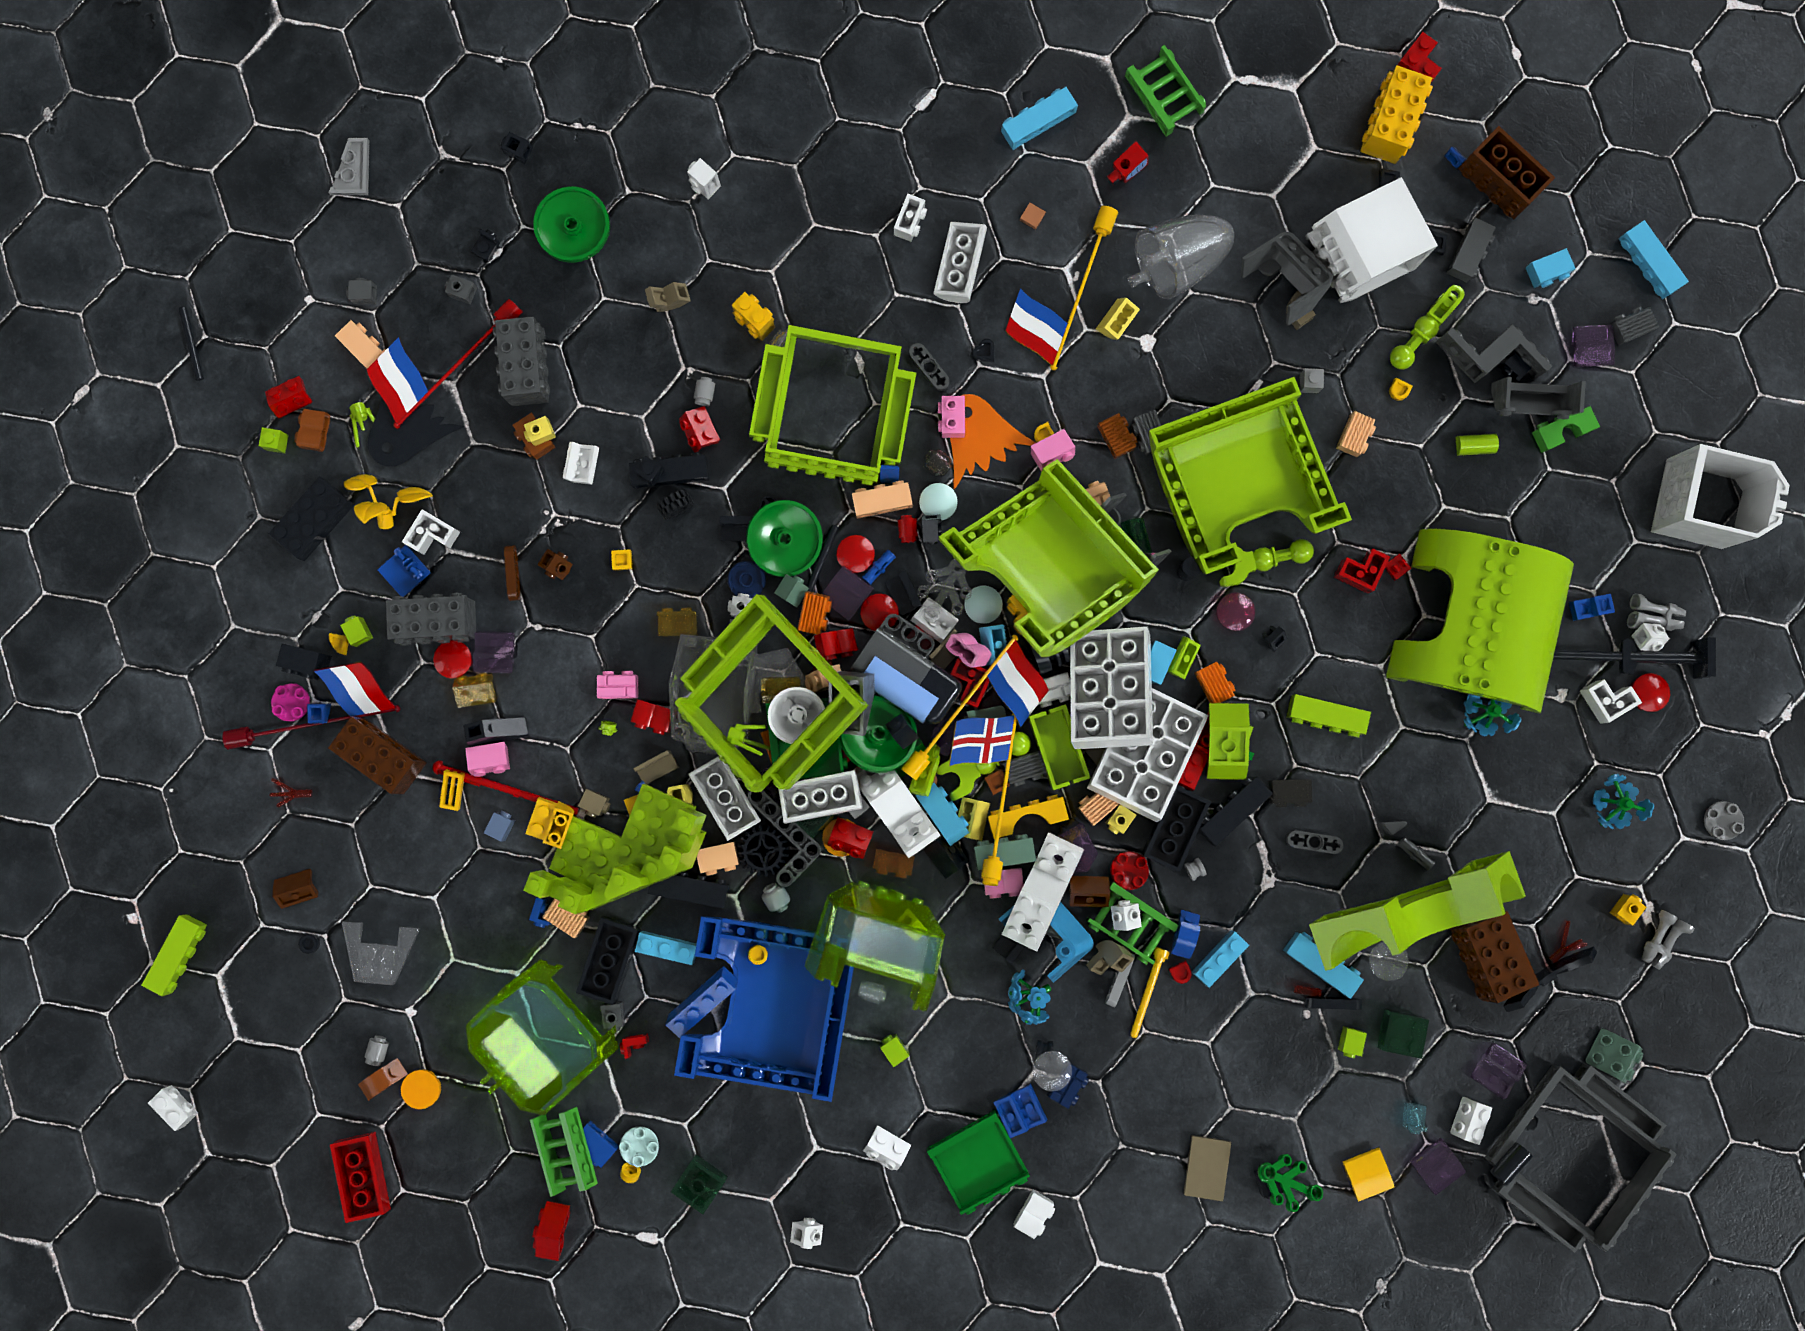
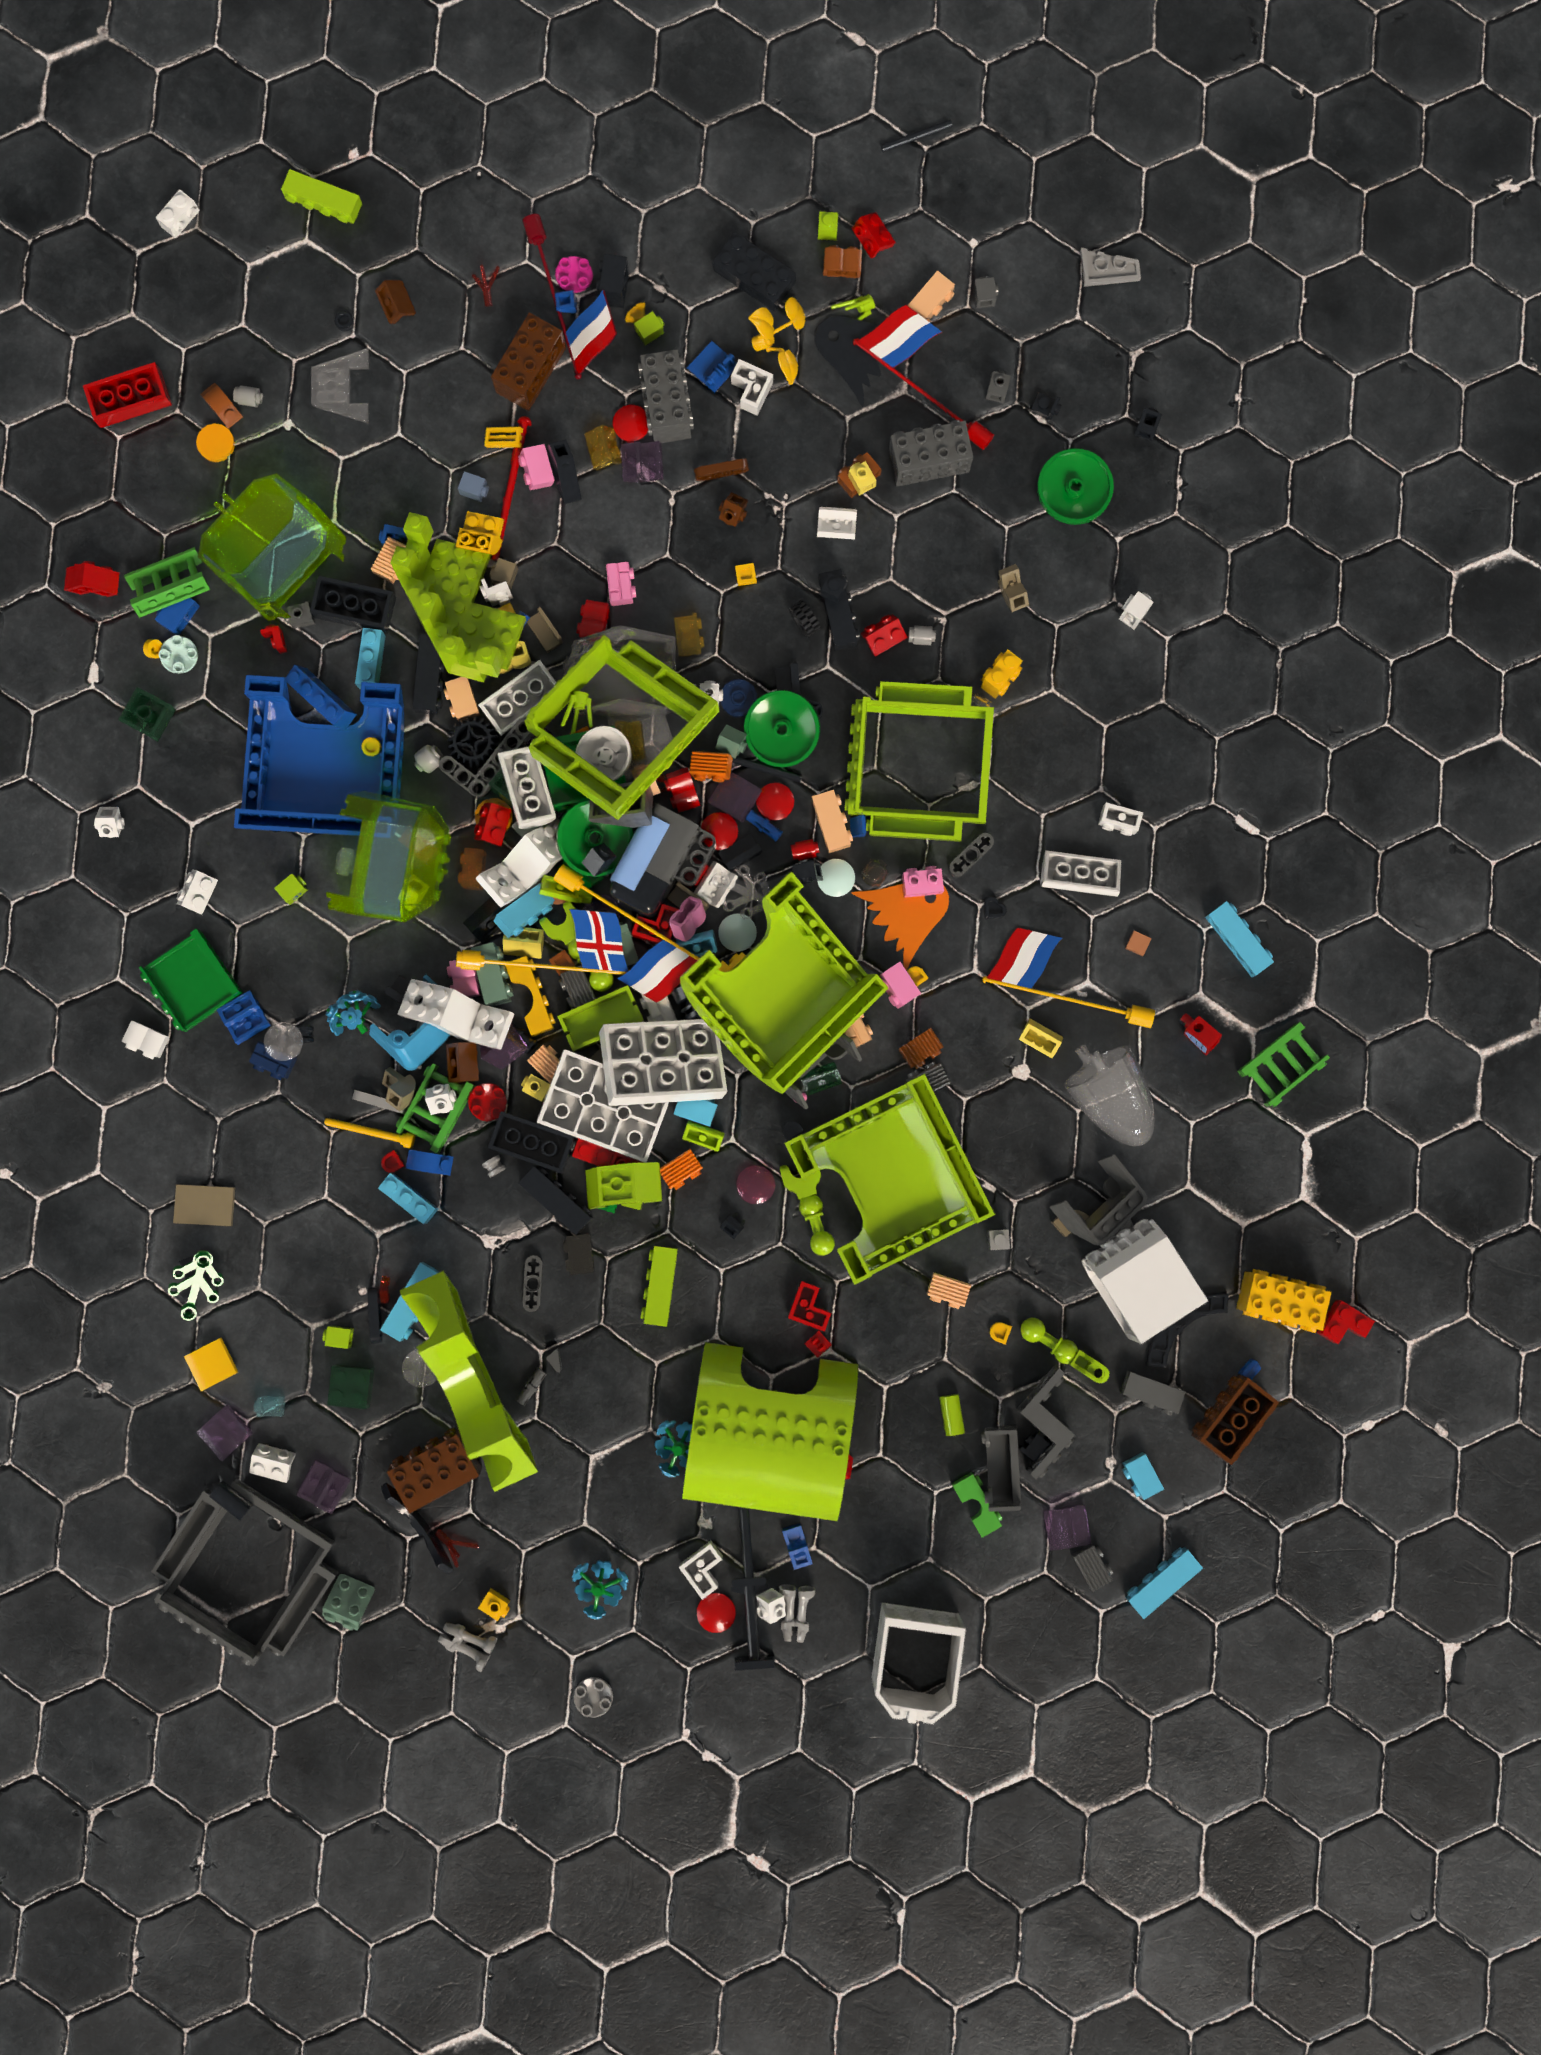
camera: 80 degrees right, 0 degrees up
(608, 727) = (578, 579): lime plate -> none
(615, 809) = (496, 594): none -> white bracket

